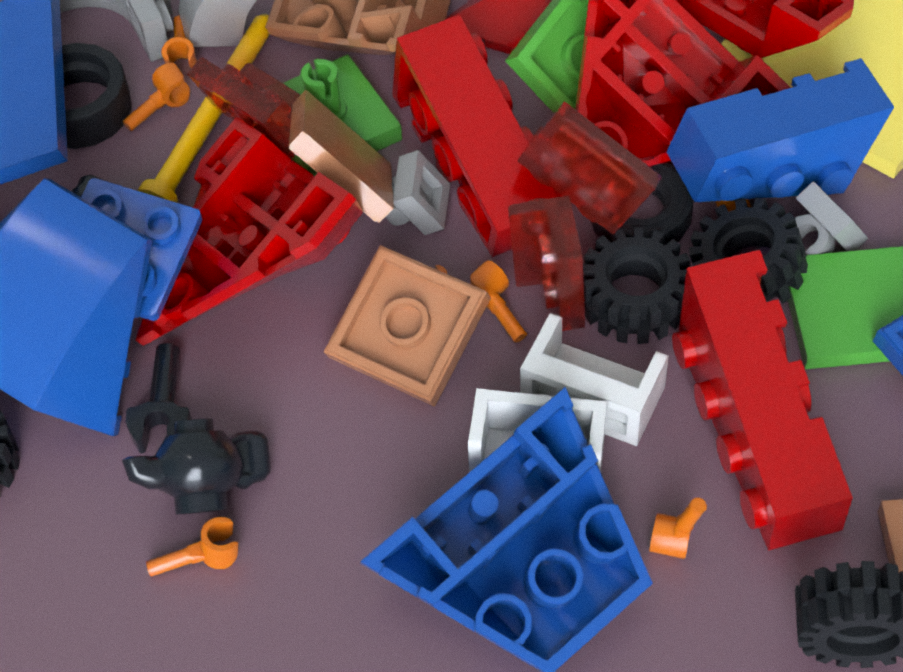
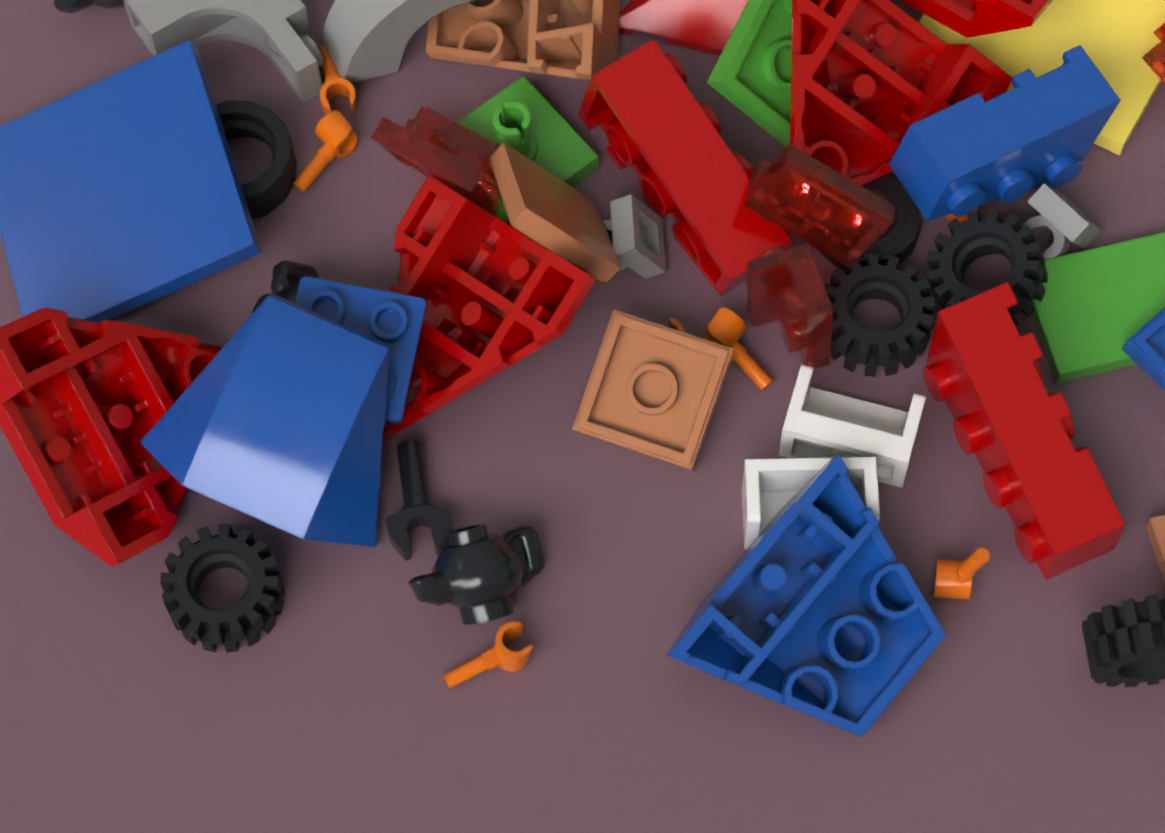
camera: 10 degrees left, 10 degrees up
(203, 120) = (358, 266): yellow bar -> none

